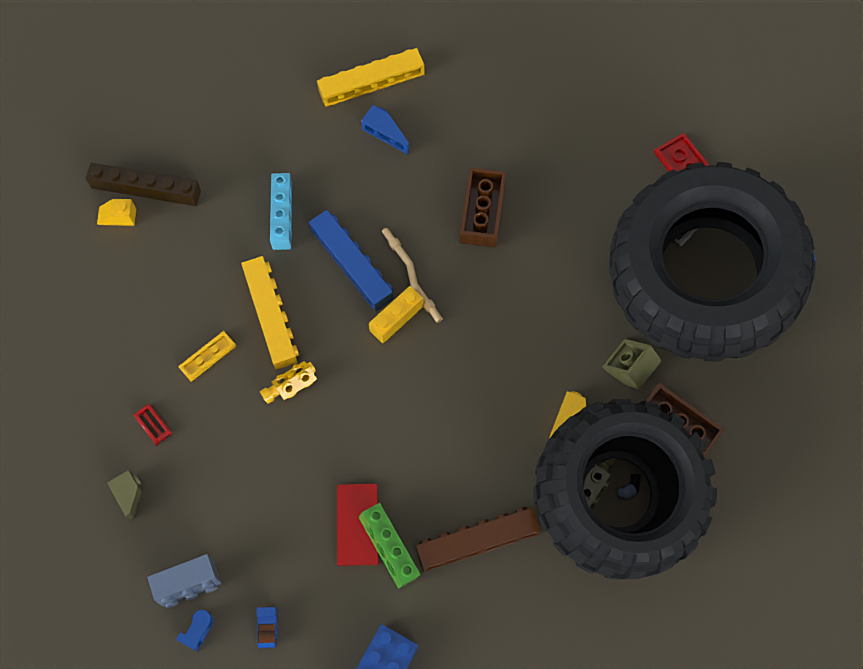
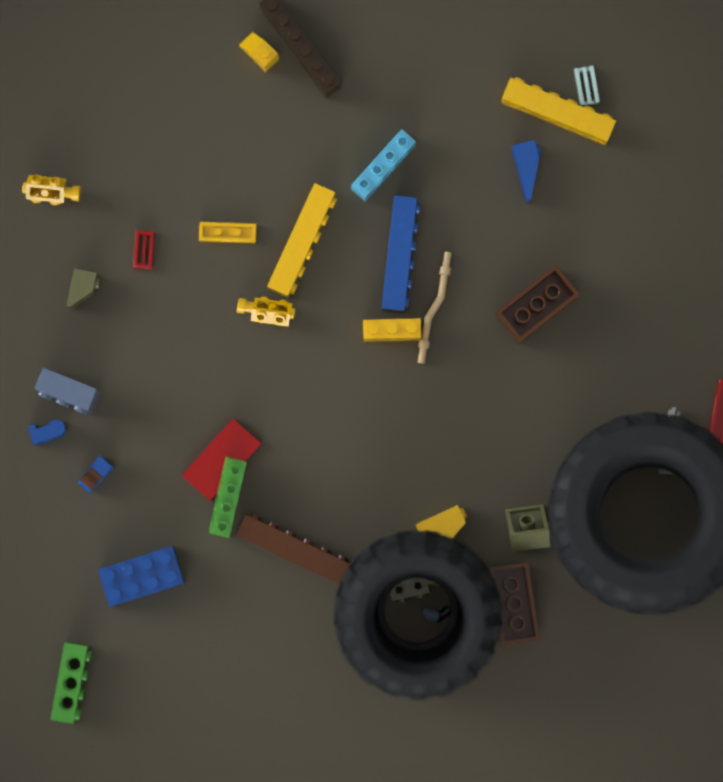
camera: 45 degrees right, 15 degrees up
(35, 446) = (49, 189): none -> yellow brick
(376, 46) = (584, 70): none -> light aqua tile

